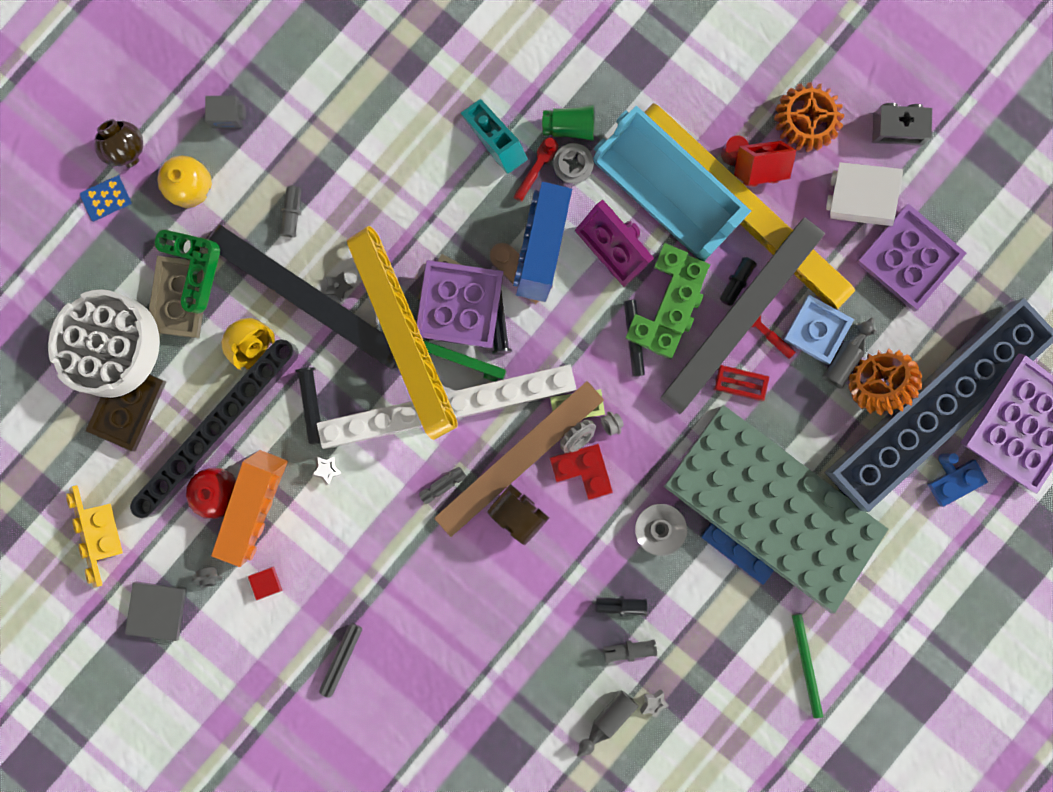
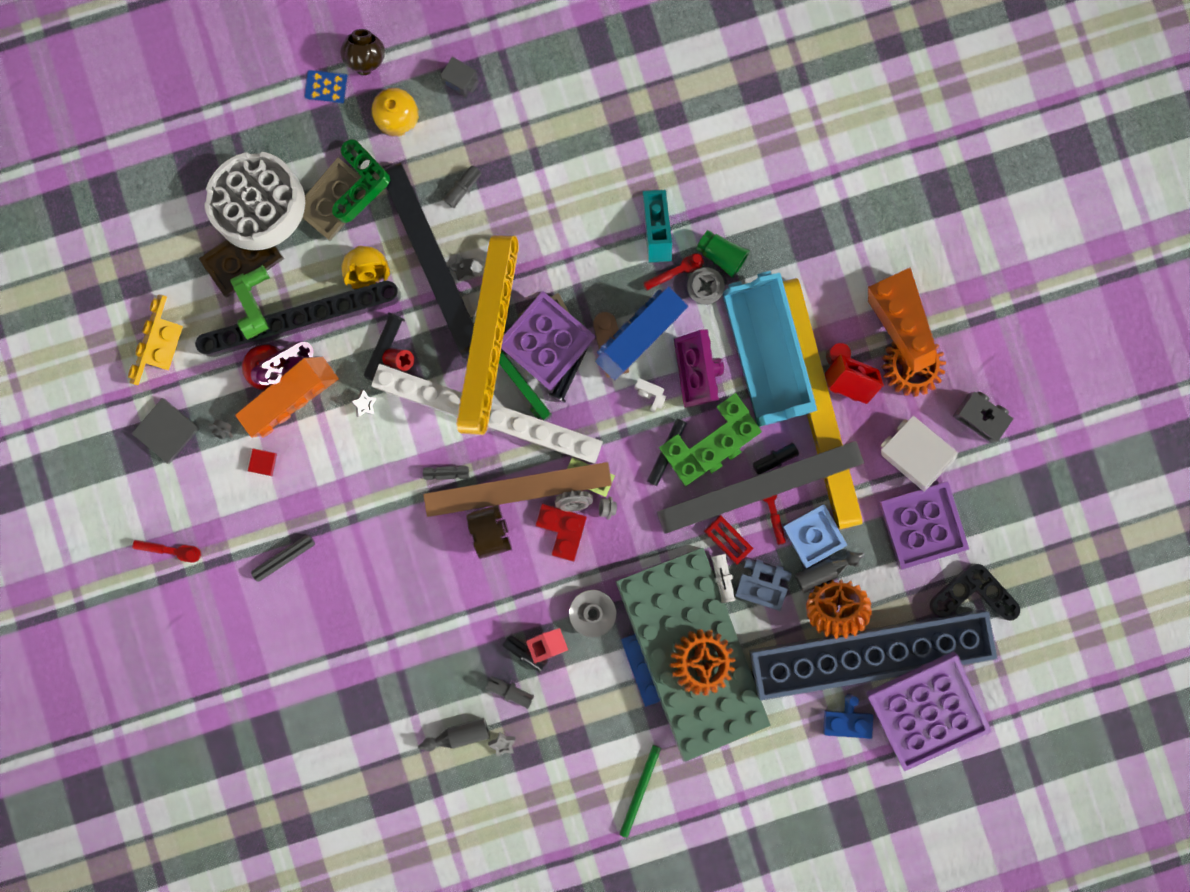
camera: 30 degrees right, 0 degrees up
(174, 457) = (254, 322): none -> bright green beam
(213, 499) = (265, 375): none -> magenta beam
(244, 714) = (184, 553): none -> red piece
(332, 407) = (398, 359): none -> red piece
(581, 291) = (647, 390): none -> white bracket
(638, 586) = (547, 645): none -> coral brick
(773, 435) = (727, 594): none -> white pin
(776, 77) = (904, 318): none -> orange wedge
(803, 411) = (760, 591): none -> sand blue plate
(809, 526) = (704, 672): none -> orange gear
(989, 286) = (972, 585): none -> black beam

